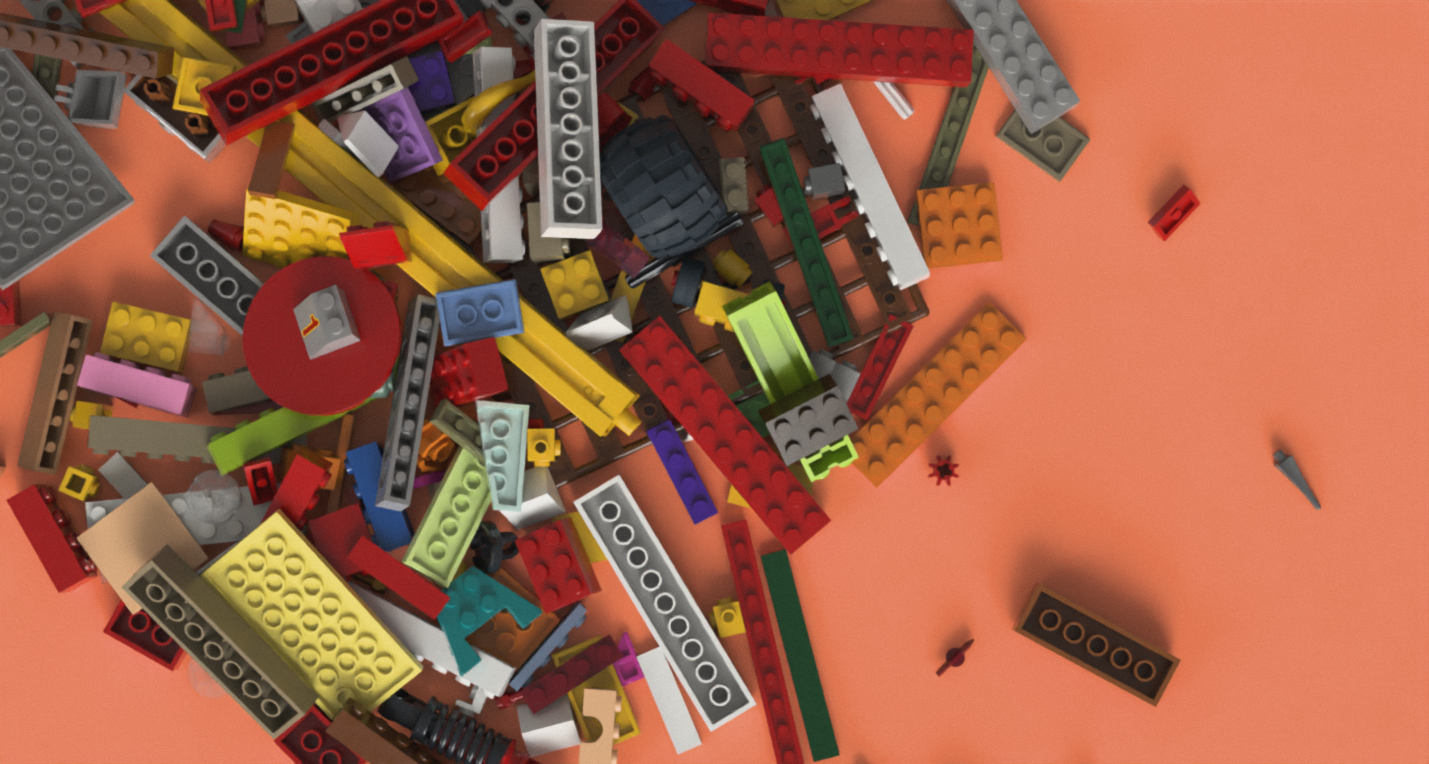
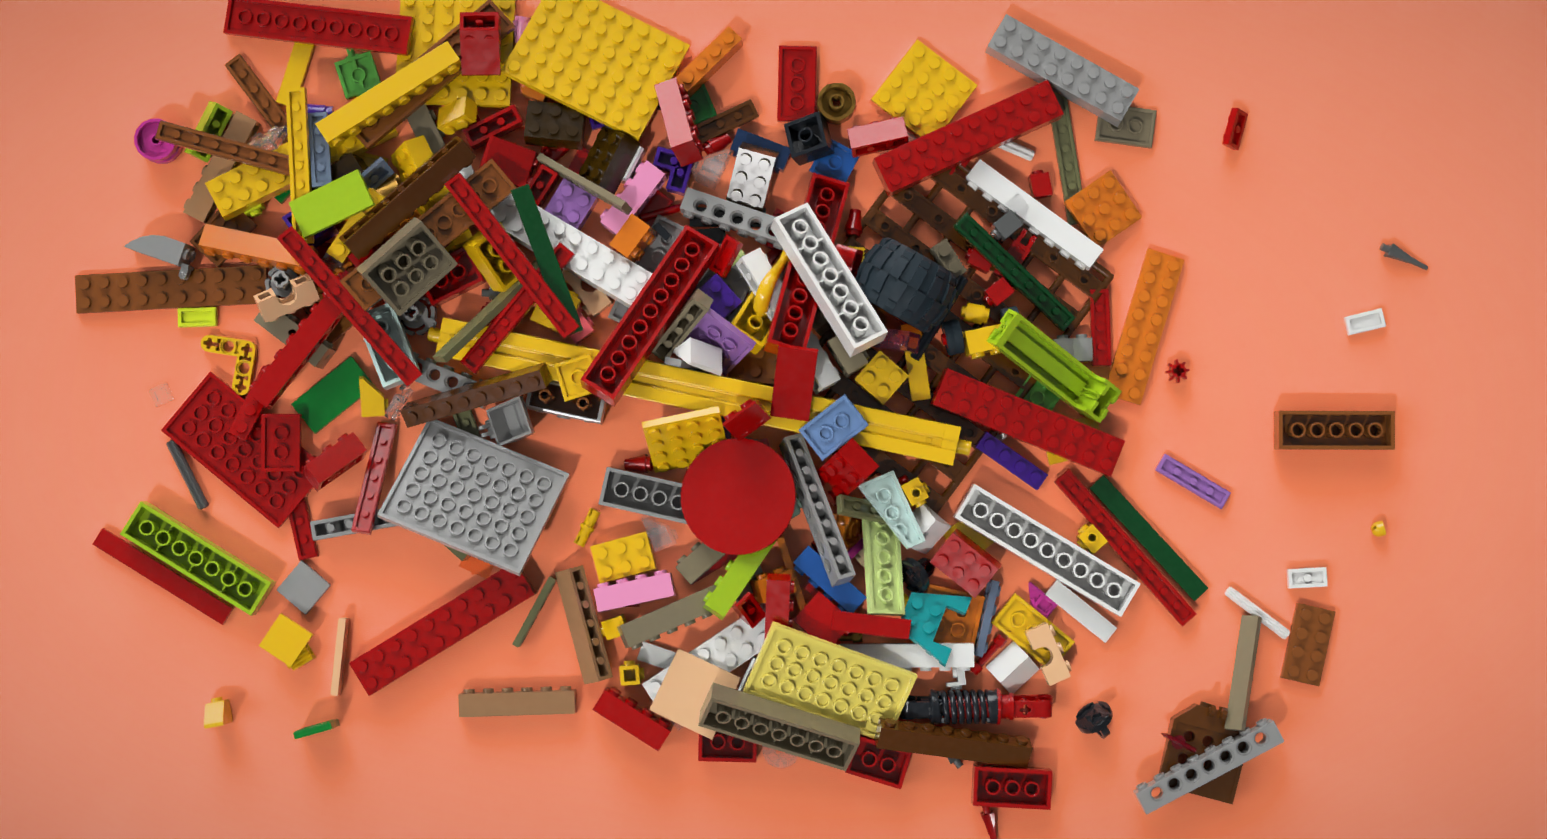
camera: 25 degrees left, 0 degrees up
(124, 277) = (587, 527): none -> yellow pin
(227, 505) = (713, 635): clear plate -> none
(271, 160) = (647, 400): dark orange tile -> none
(326, 322) = (737, 486): light grey slope -> none
(458, 231) = (794, 382): none -> red tile
(571, 674) = (1011, 627): dark red plate -> none
(601, 324) = (912, 393): white slope -> none
(701, 86) = (894, 208): red brick -> none
(774, 257) = (998, 292): none -> red brick
(808, 419) = (1078, 384): brick -> none
(891, 615) = (1192, 481): none -> medium lavender tile
(898, 154) = (1040, 184): none -> red brick
(954, 657) = (1247, 486): dark red piece -> none
(1206, 533) = (1364, 321): none -> white tile

